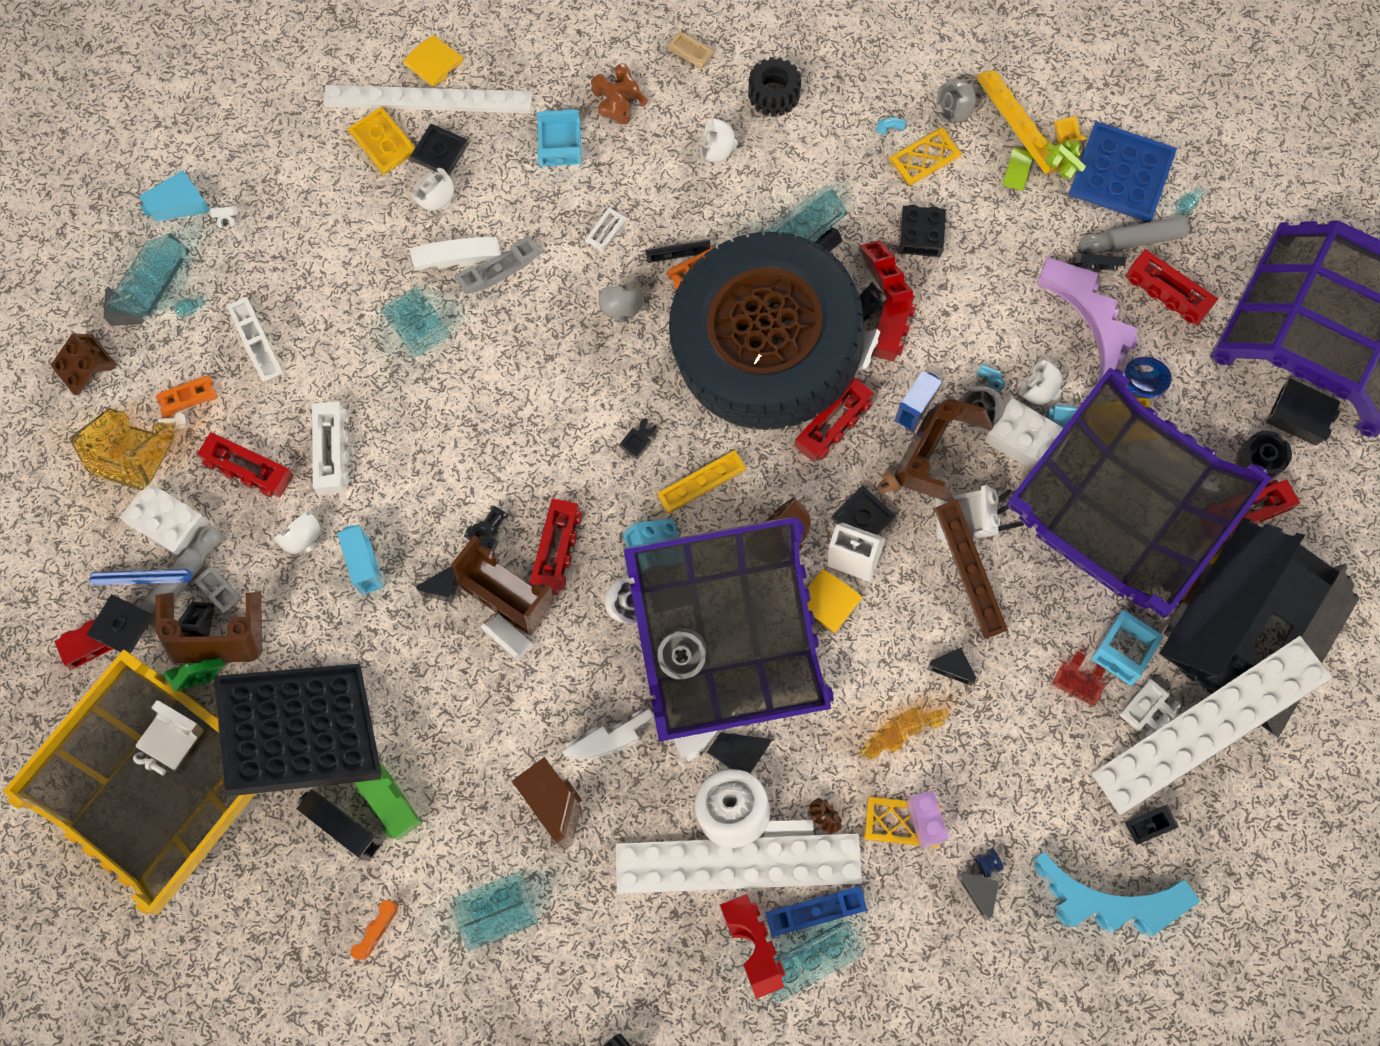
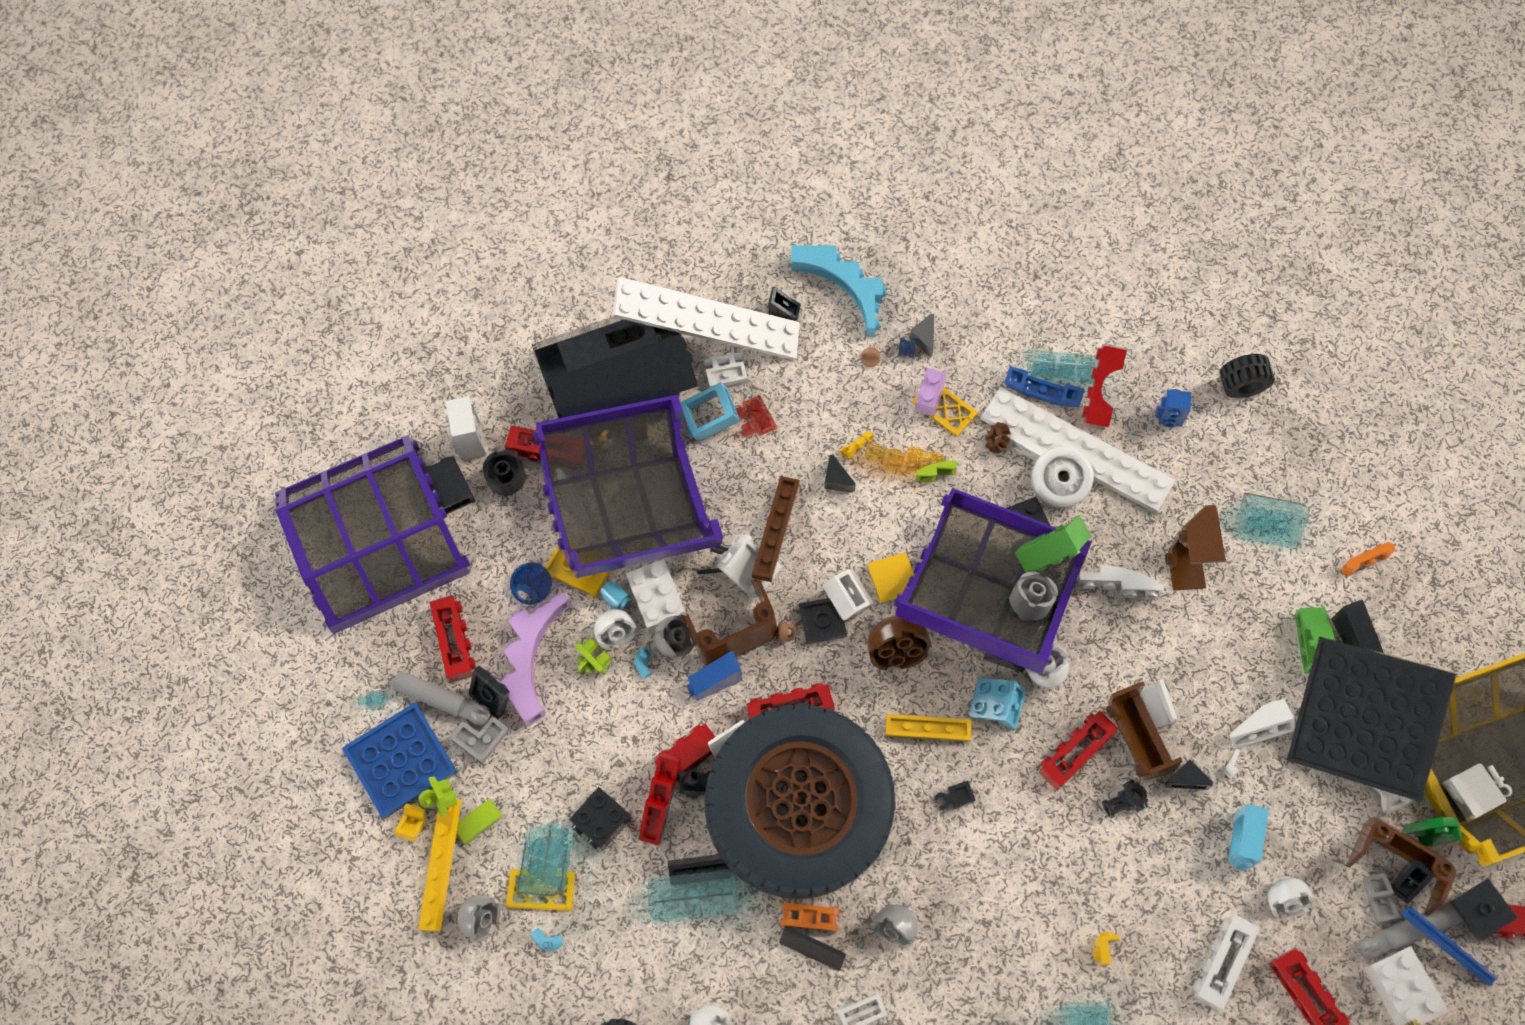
camera: 145 degrees left, 5 degrees down
(395, 683) = (1267, 722): none -> white slope
(408, 621) = (1230, 770): none -> white hand
(442, 400) = (1101, 952): none -> yellow bracket
(665, 973) = (1173, 408): none -> blue brick
(689, 709) = (1053, 546): none -> bright green wedge
(865, 733) = (930, 472): none -> lime slope
(938, 172) = (545, 860): none -> clear light blue slope
(959, 718) = (850, 450): none -> yellow piece
(1018, 828) = (870, 357): none -> medium nougat tile
(1037, 348) = (587, 650): none -> lime hips
(1071, 224) = (480, 744): none -> light grey plate
(1337, 464) = (465, 428): none -> white brick

